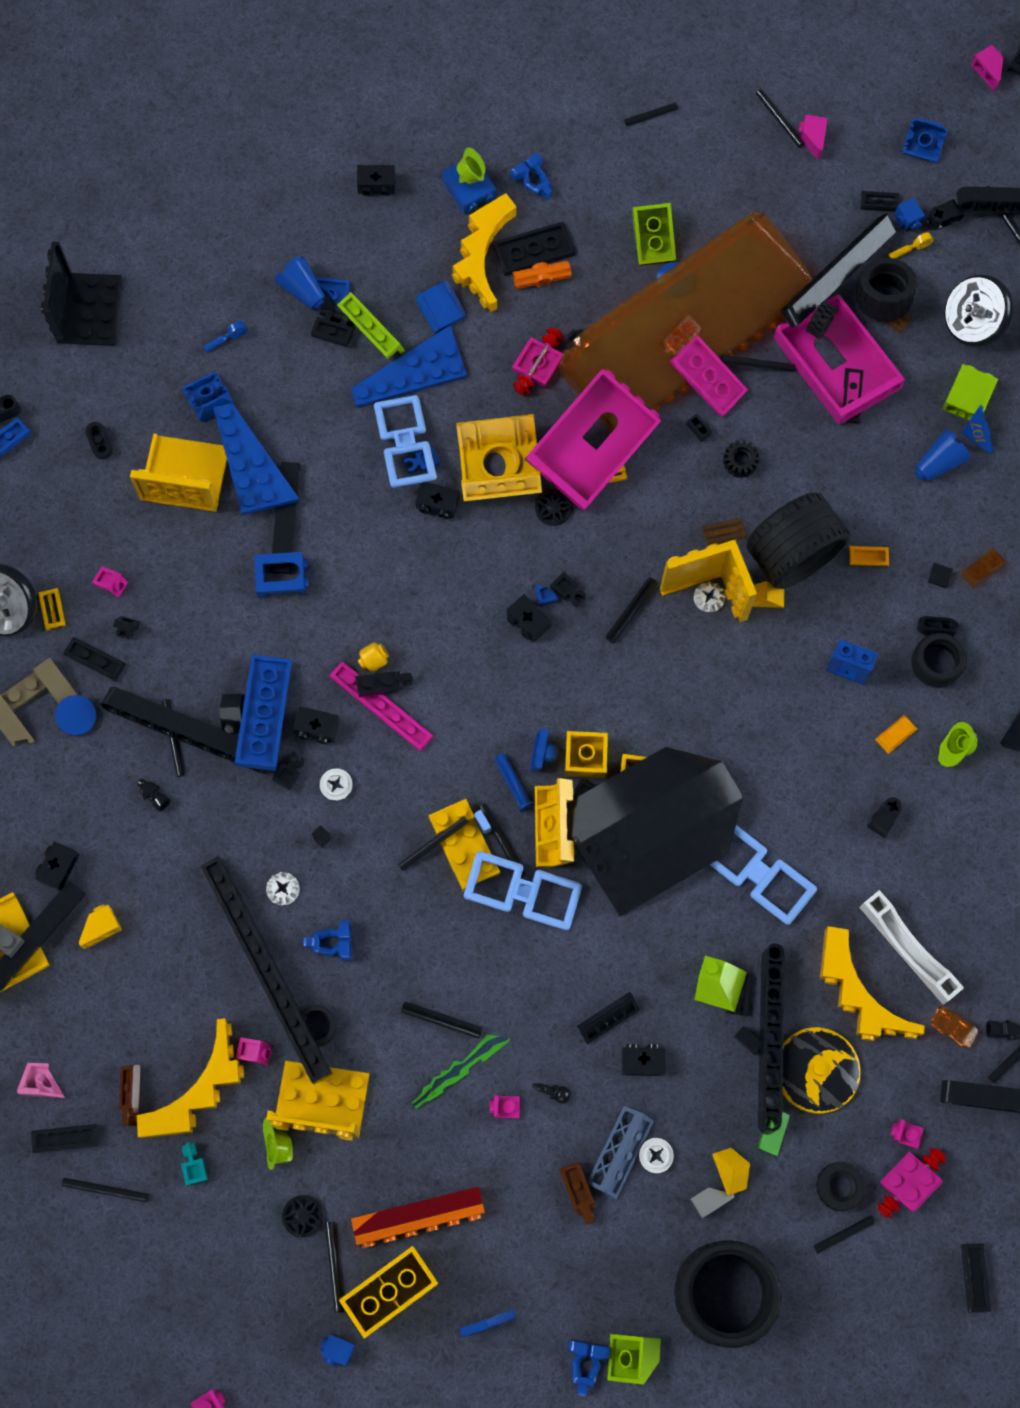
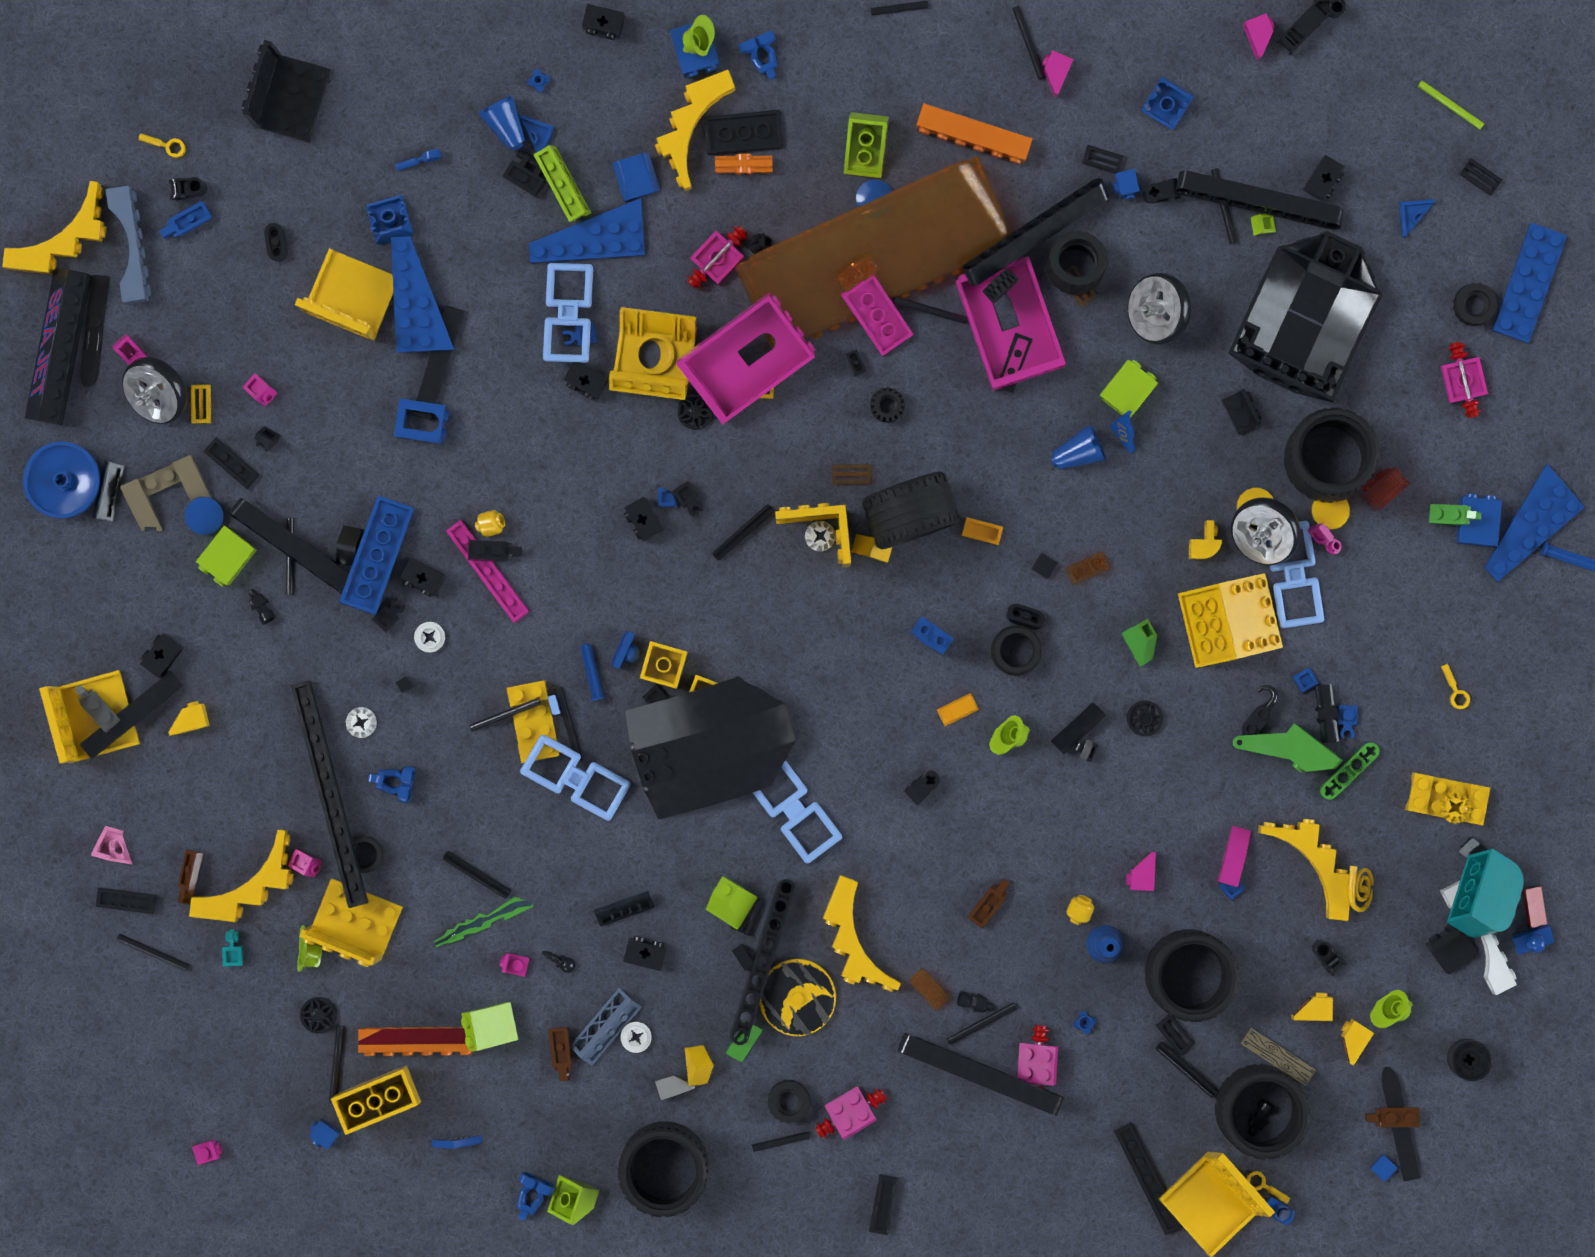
camera: 15 degrees right, 15 degrees up
(106, 750) = (225, 556): none -> lime brick
(325, 248) = (538, 85): none -> blue plate
(495, 1179) = (489, 1026): none -> lime brick
(551, 824) = (615, 723): yellow piece -> none
(747, 200) = (973, 133): none -> orange brick
(906, 1134) = (859, 1070): dark pink bracket -> none
(920, 242) = (1126, 216): yellow piece -> none
(929, 970) = (910, 911): white arch -> none
(989, 922) = (989, 904): none -> reddish brown hinge

